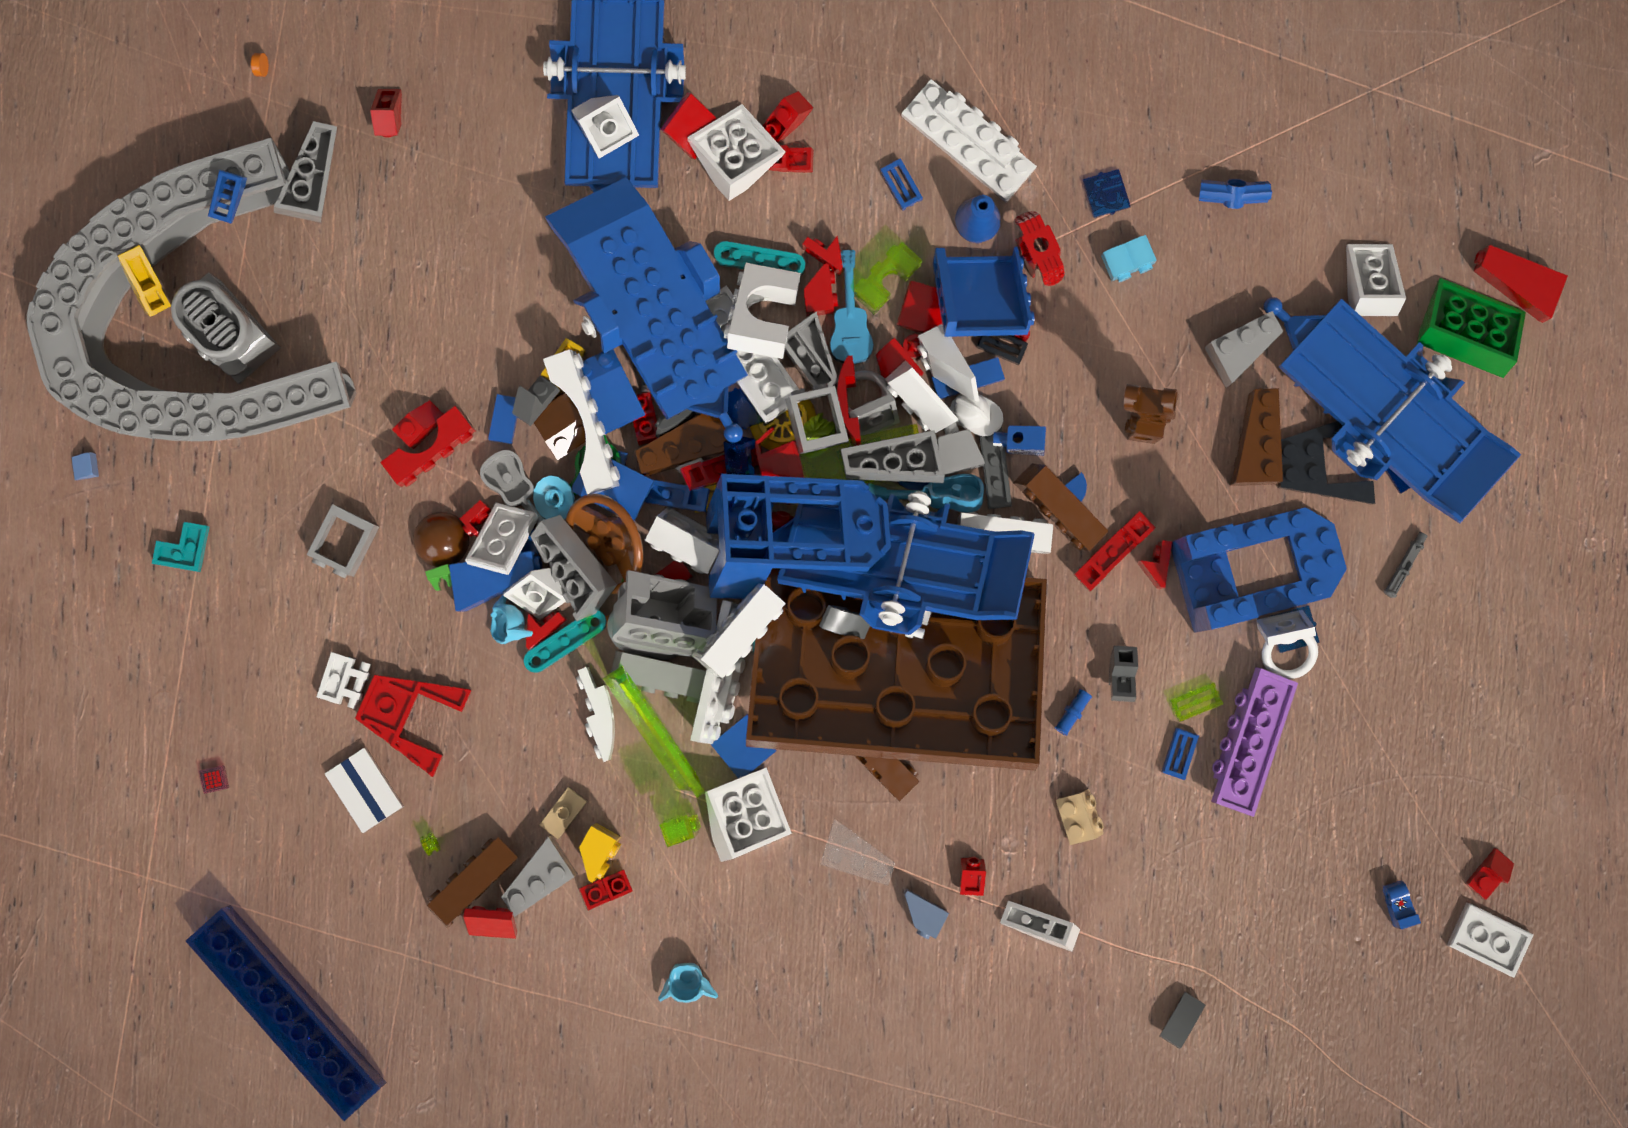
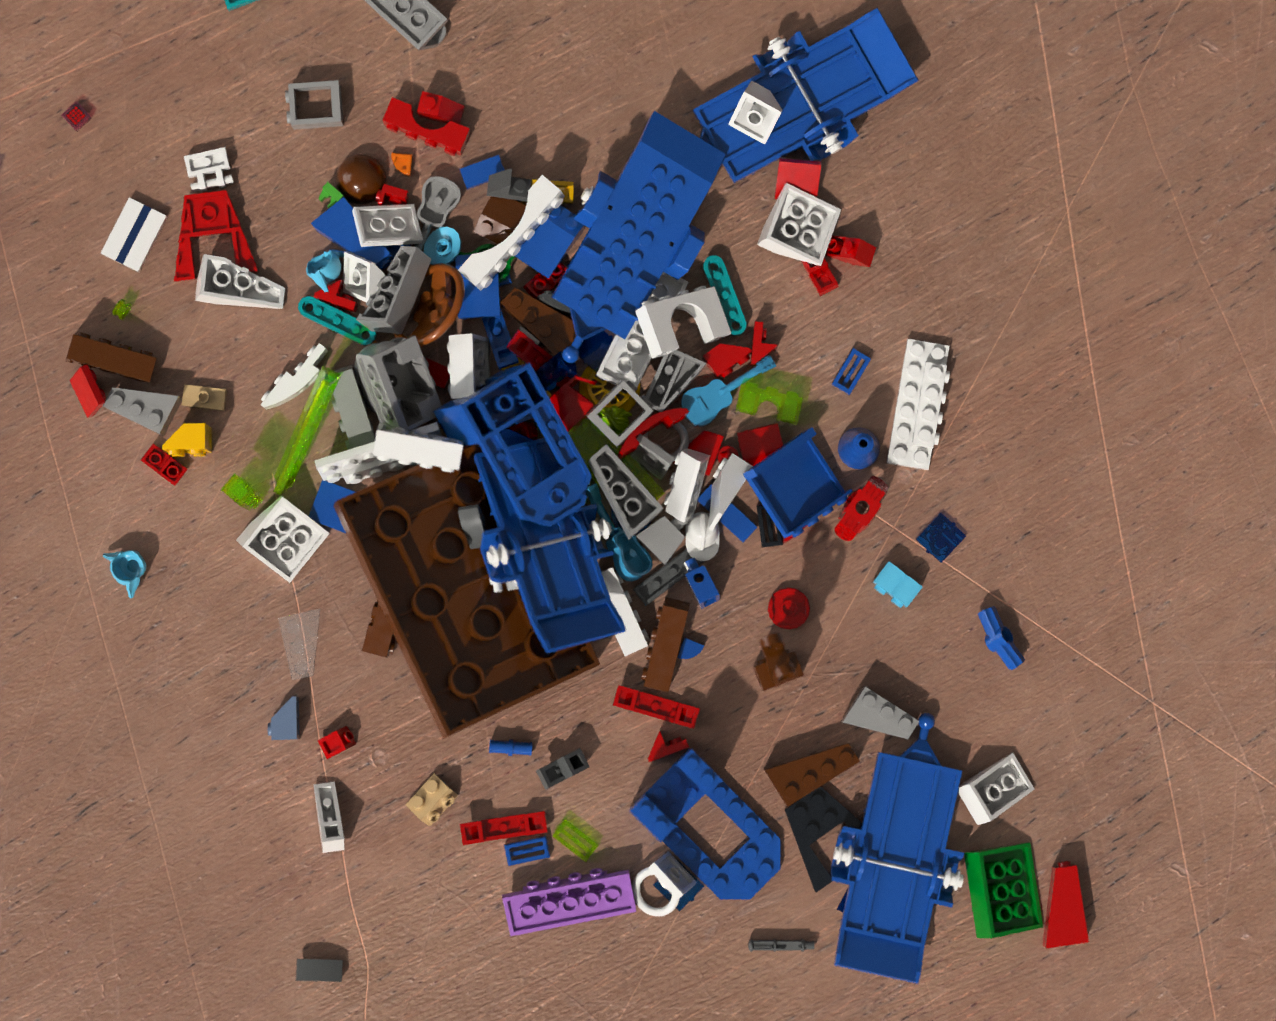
camera: 60 degrees right, 0 degrees up
(449, 490) = (402, 163): none -> orange tile
(469, 723) = (230, 284): none -> white wedge
(1091, 373) = (788, 608): none -> red tile
(1145, 763) = (503, 827): none -> red slope

